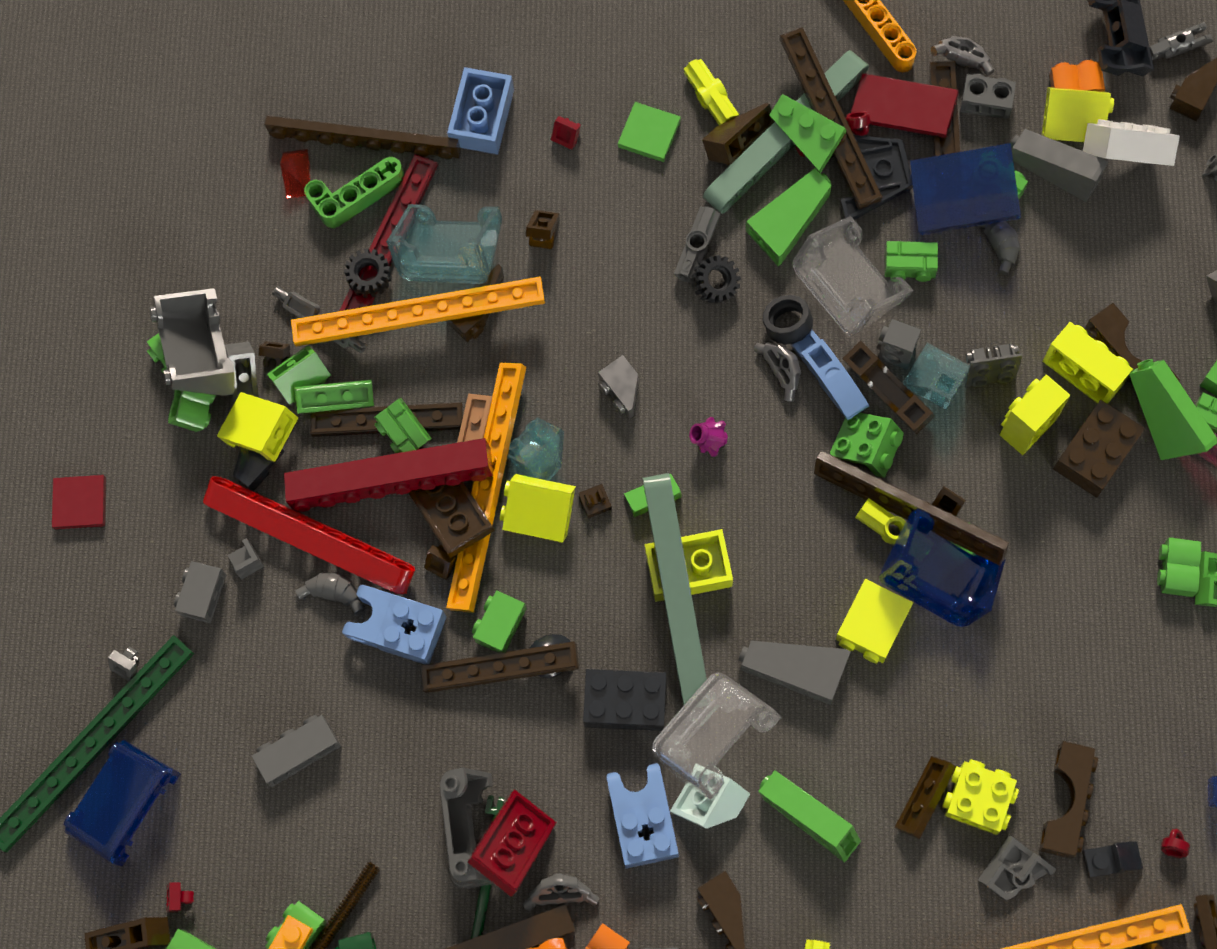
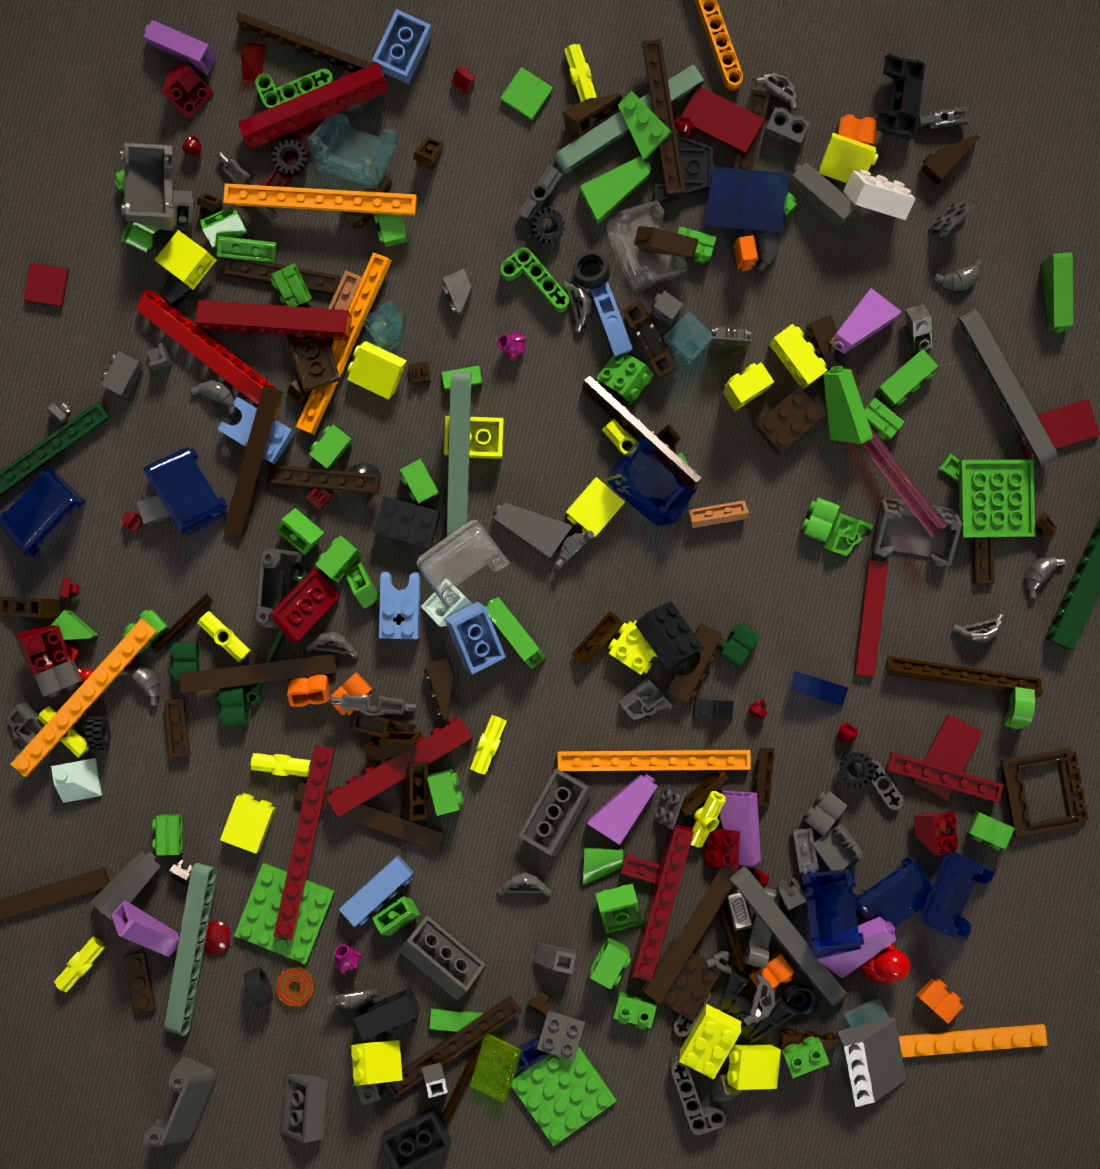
camera: 10 degrees right, 15 degrees up
(201, 172) = (180, 46): none -> medium lavender slope
(218, 222) = (185, 89): none -> dark red slope
(238, 288) = (192, 146): none -> dark red tile
(248, 786) = (131, 521): none -> dark red tile
(316, 725) = (185, 491): none -> clear blue windscreen
(385, 203) = (313, 106): none -> dark red brick
(399, 664) = (253, 460): none -> dark brown tile
(422, 925) = (233, 645): none -> neon yellow piece
(481, 744) = (302, 531): none -> bright green brick
(497, 694) = (319, 497): none -> dark red tile
(516, 329) = (392, 229): none -> bright green brick
(543, 770) = (338, 558): none -> bright green brick
(583, 800) = (362, 585): none -> bright green slope
(628, 641) = (419, 481): none -> bright green brick
(721, 351) = (544, 278): none -> bright green beam
(757, 833) = (474, 637): none -> medium blue brick
(856, 679) = (570, 546): none -> dark grey piece
(874, 263) = (665, 242): none -> dark brown slope
(980, 253) = (745, 253): none -> orange brick
(1025, 767) = (669, 635): none -> black brick
(1042, 591) = (718, 514): none -> medium nougat plate
(1122, 760) = (739, 644): none -> dark green brick
(1160, 300) = (865, 320): none -> medium lavender slope

